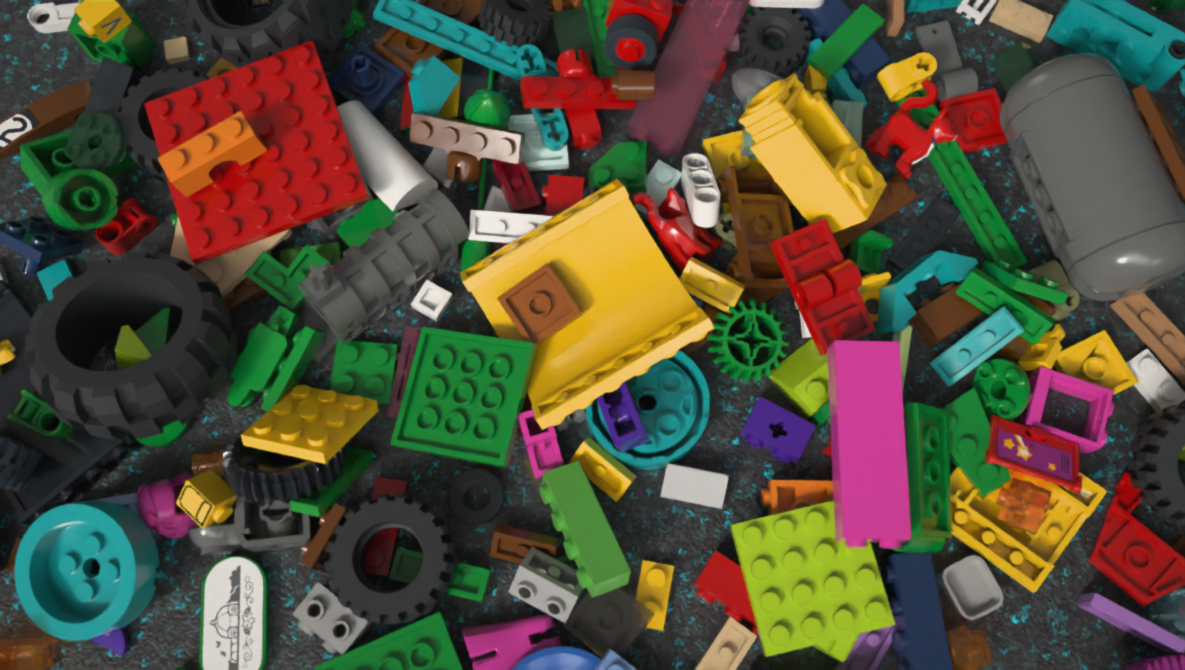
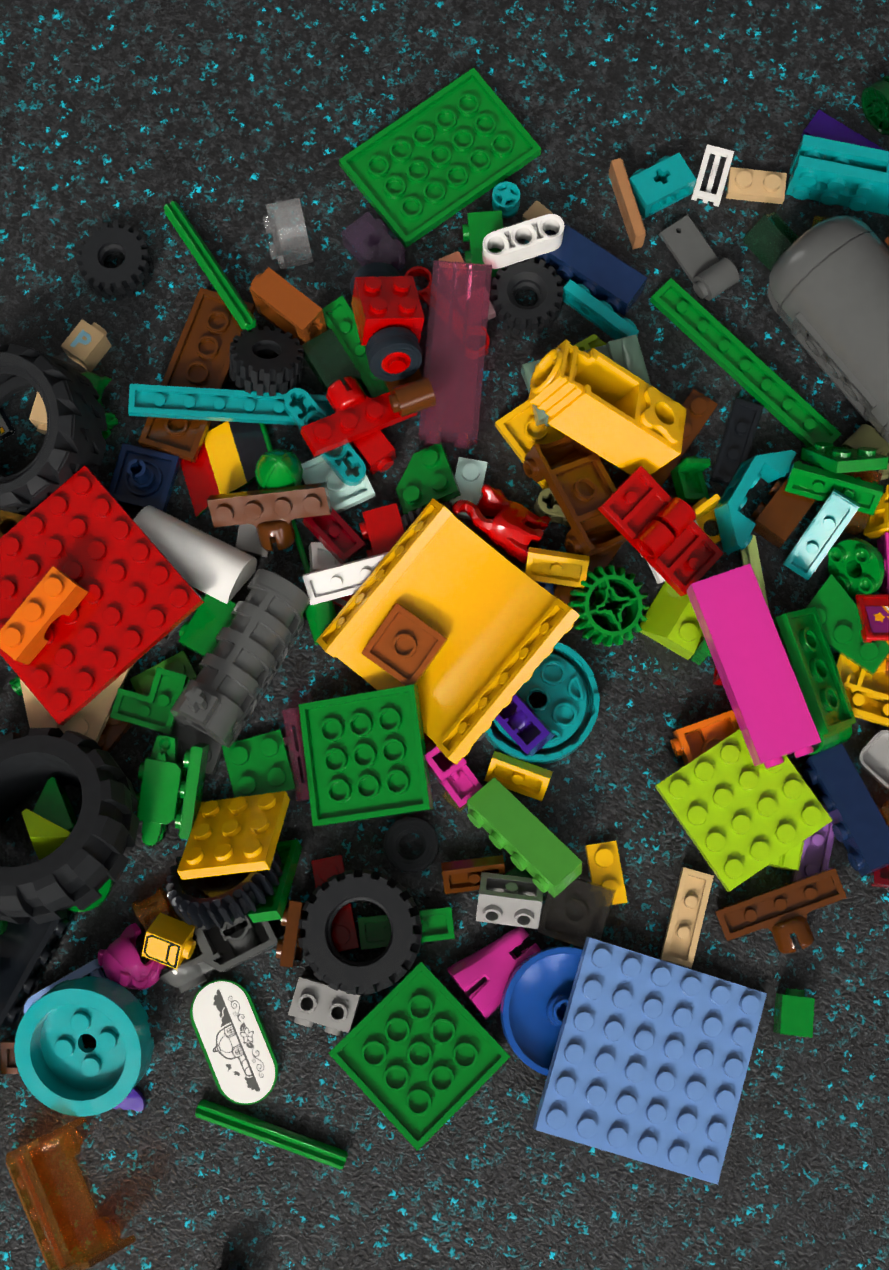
camera: 15 degrees left, 5 degrees up
(431, 85) = (212, 464): teal slope -> none
(432, 300) = (296, 674): white plate -> none
(694, 486) = (607, 760): slope -> none
(700, 190) = (512, 475): white beam -> none
(724, 583) = (668, 839): red brick -> none
(751, 81) = (525, 347): clear brick -> none
(793, 431) = (678, 673): dark purple brick -> none
(814, 81) = (581, 324): yellow plate -> none
(845, 41) = (598, 275): green tile -> none
(906, 76) = (665, 292): yellow piece -> none
(909, 136) = (686, 347): red animal -> none
(976, 120) = (745, 308): red plate -> none

